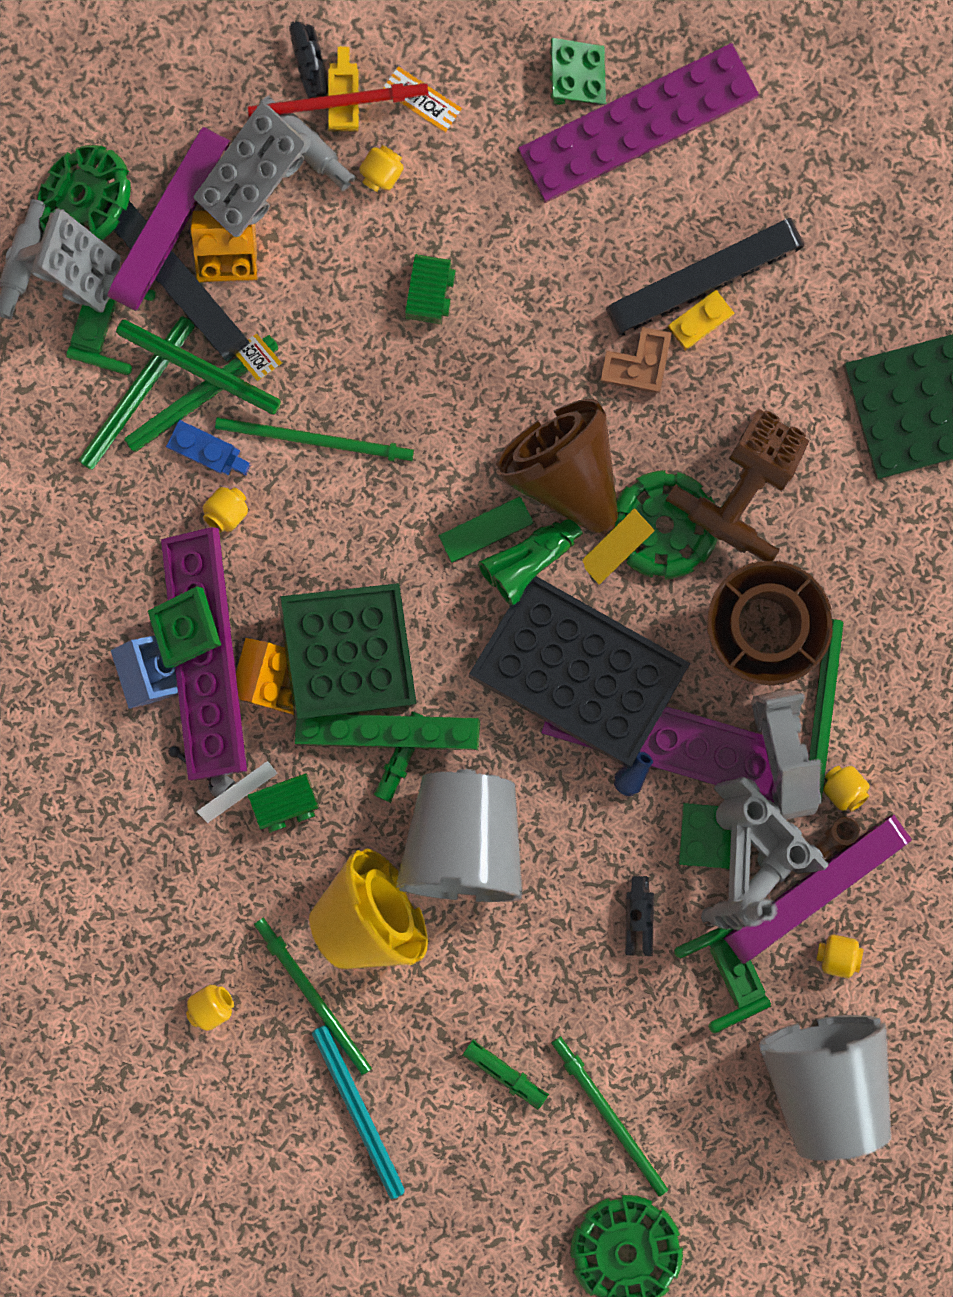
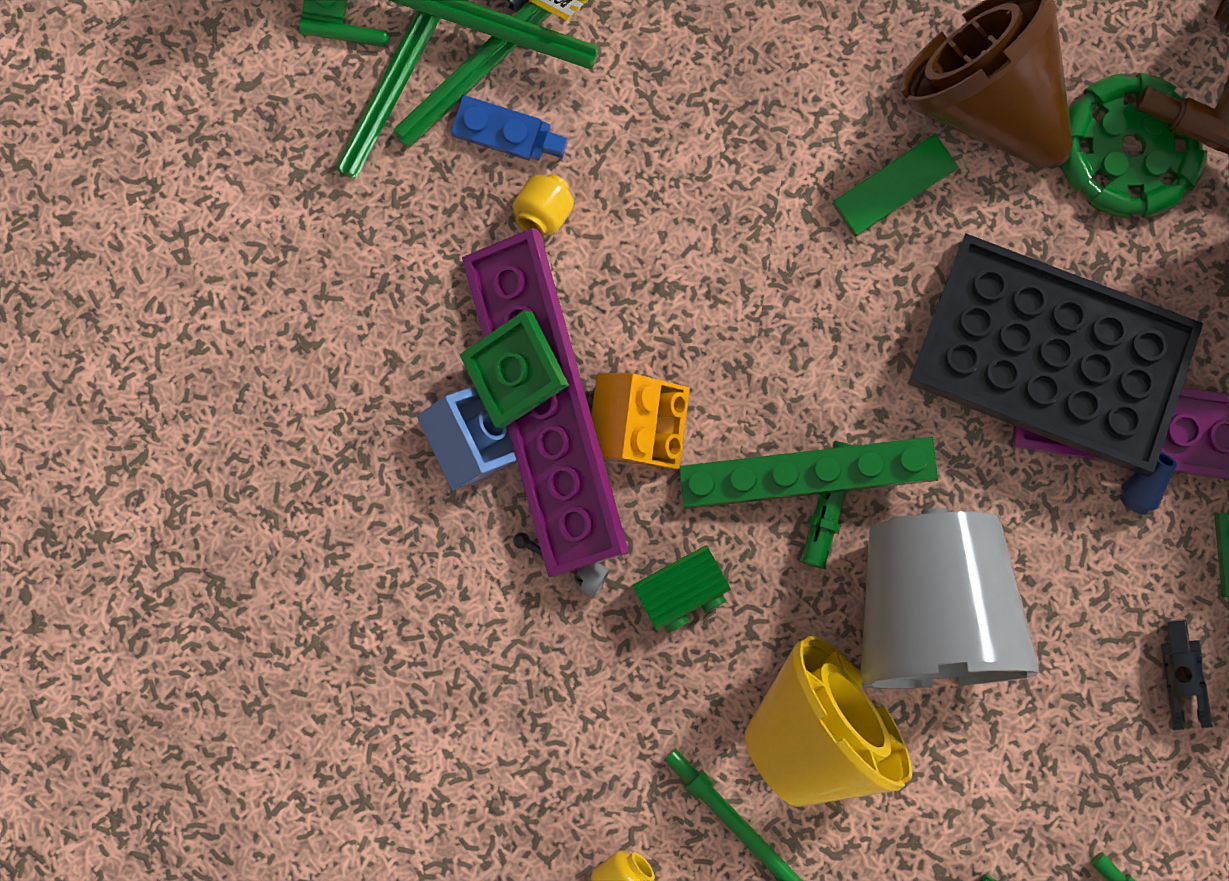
camera: 10 degrees left, 0 degrees up
(237, 792) = (615, 583): white sticker -> none
(347, 651) = (737, 371): dark green plate -> none
(390, 451) = (642, 96): green bar -> none
(518, 565) = (952, 223): green piece -> none
(617, 546) = (1076, 181): yellow sticker -> none

